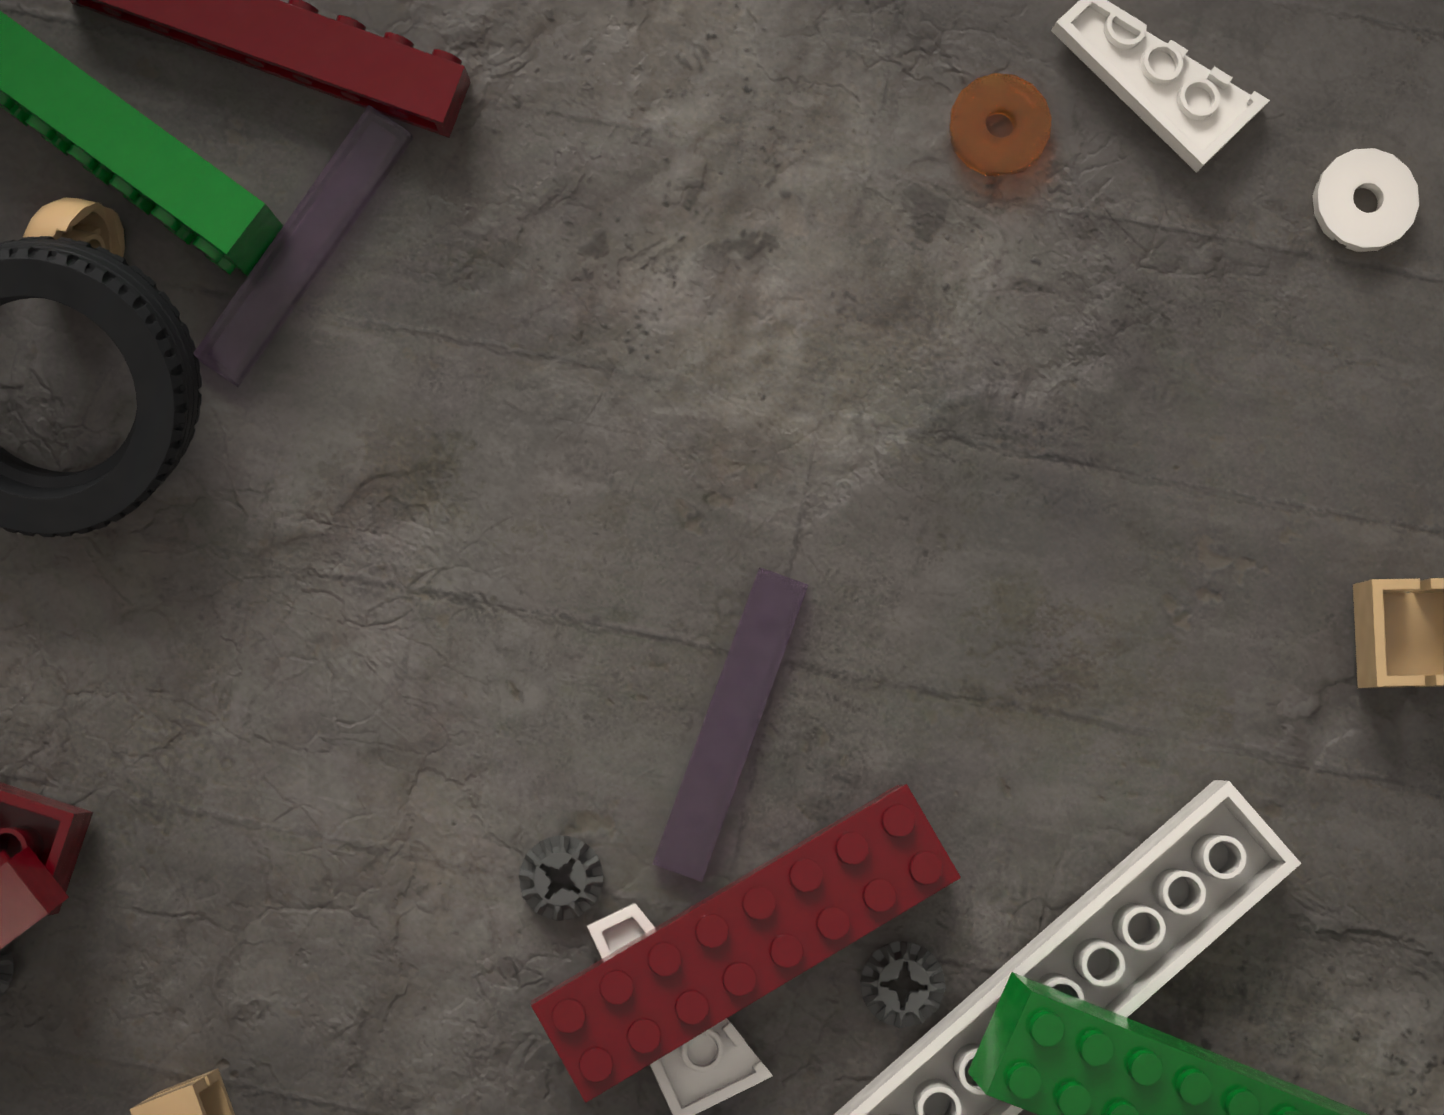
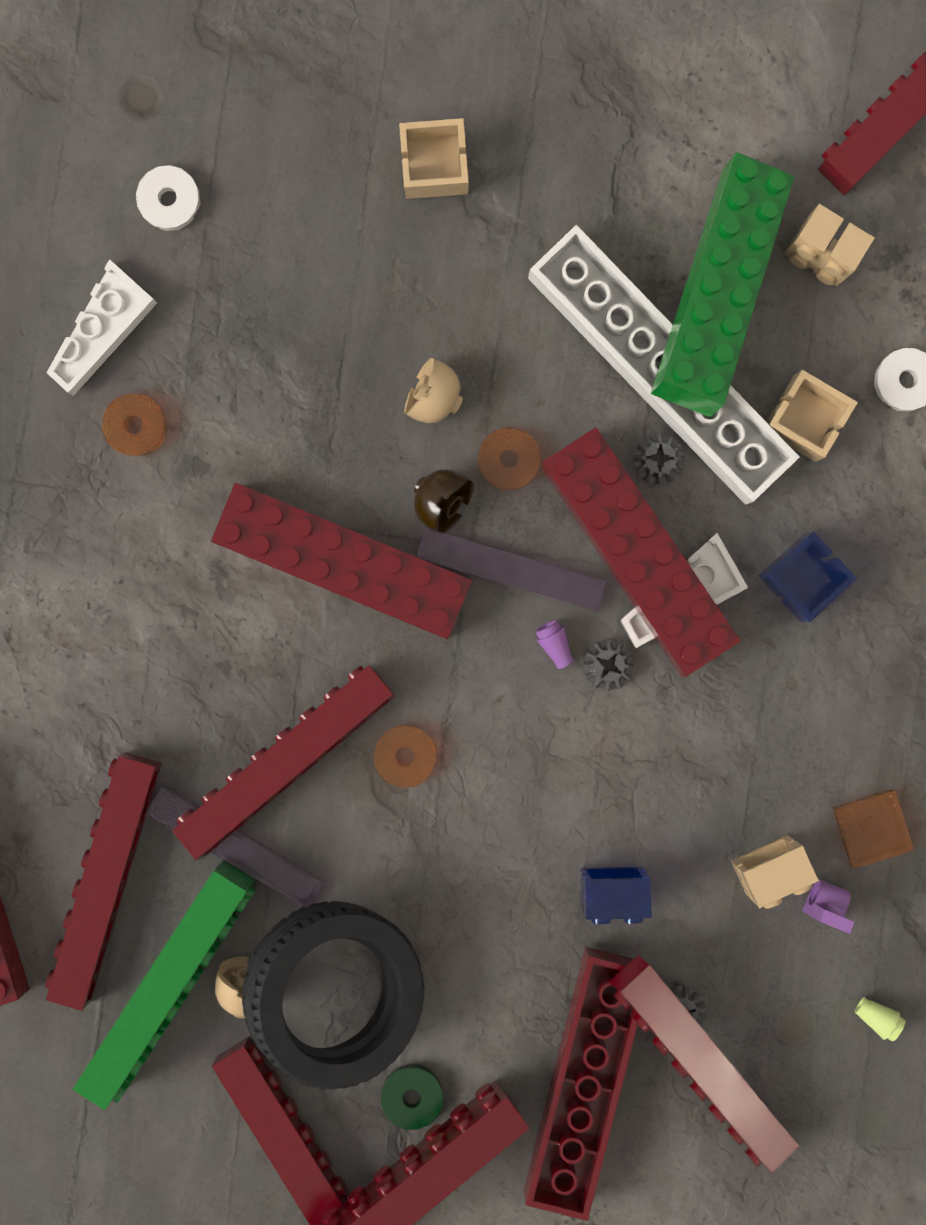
camera: 90 degrees left, 5 degrees up
(174, 866) = (615, 894): none -> clear blue piece
(401, 530) = (397, 773): none -> clear orange tile
(435, 330) = (282, 763): none -> dark red brick
(603, 790) = (554, 641): none -> medium lavender cone
(759, 445) = (341, 560): none -> dark red brick
(855, 612) = (440, 498): none -> dark brown cylinder
(945, 739) = (511, 440): none -> clear orange tile
(1028, 612) = (434, 394): none -> tan cylinder

